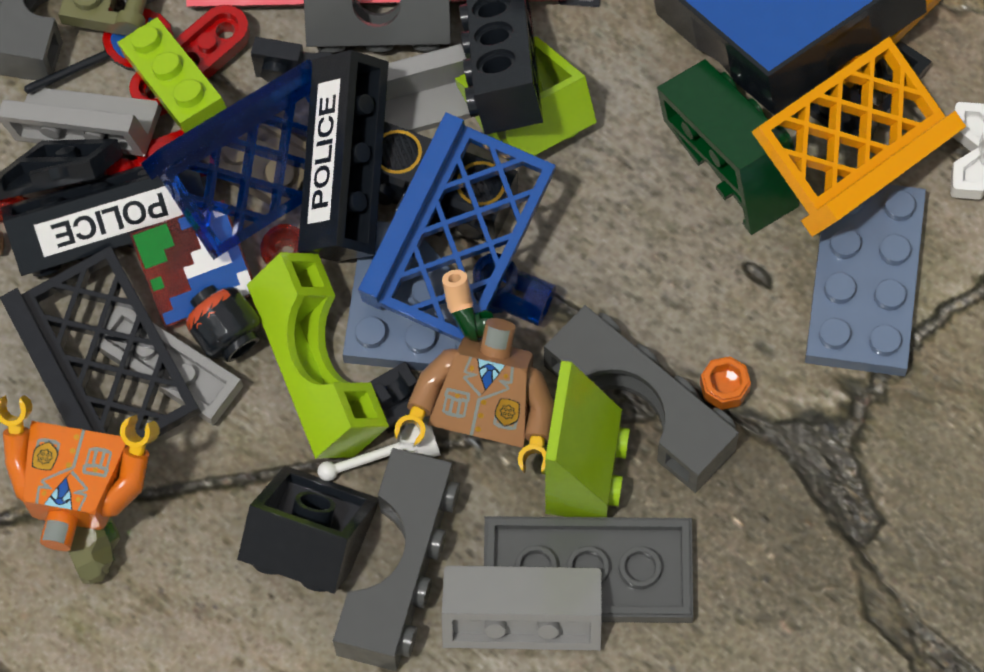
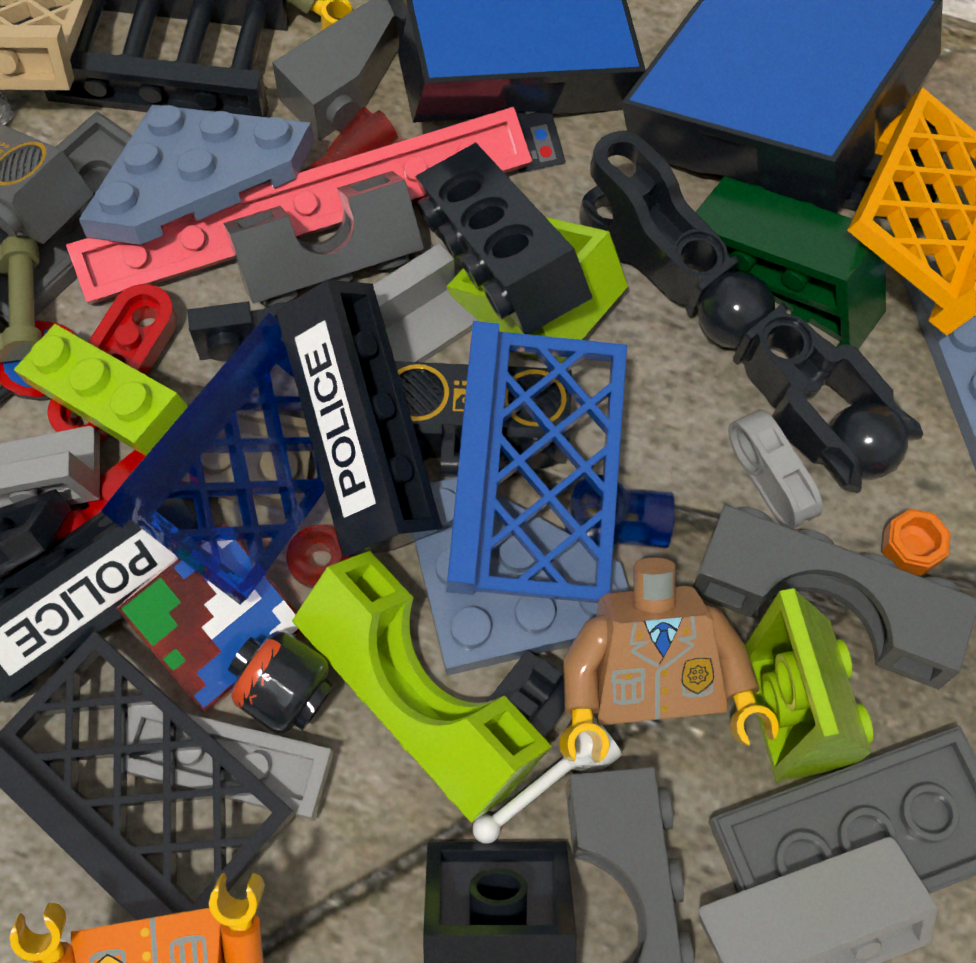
camera: 25 degrees left, 0 degrees up
(461, 306) = (586, 559): arm -> none
(643, 294) = (775, 469): none -> light grey piece
(669, 171) = (738, 311): none -> black piece

